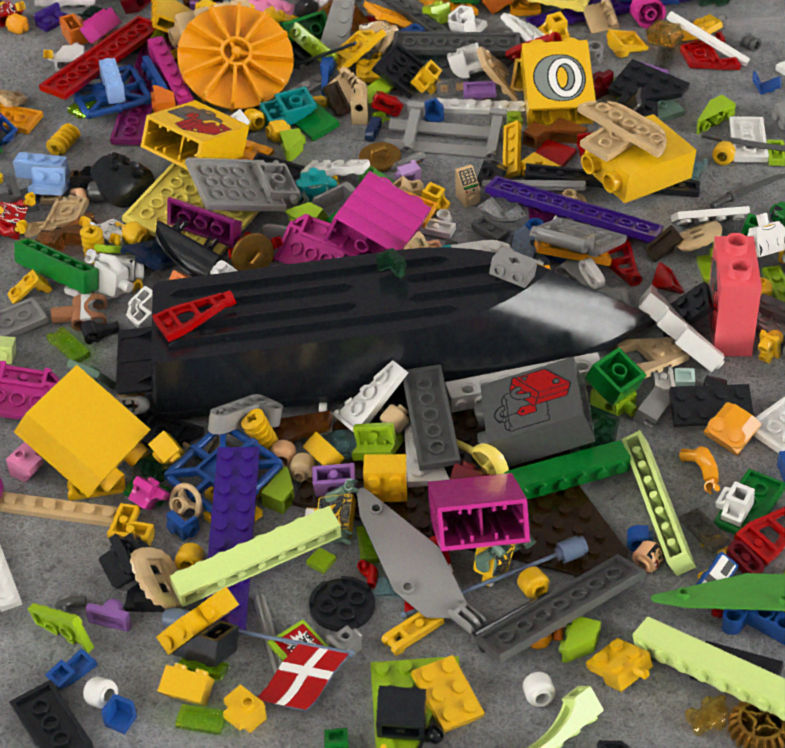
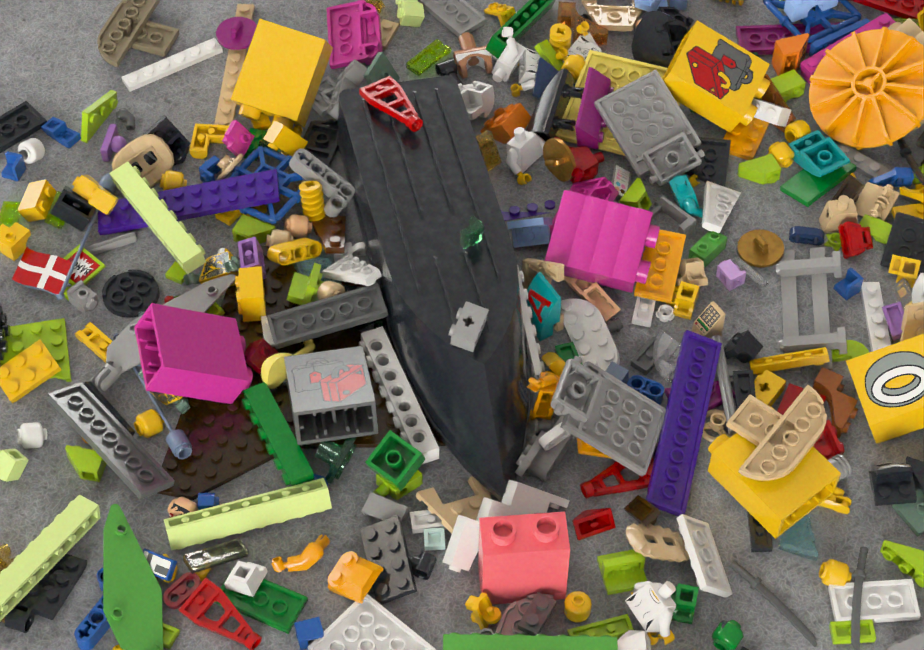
camera: 80 degrees right, 10 degrees up
(620, 664) = (57, 492): yellow plate -> none

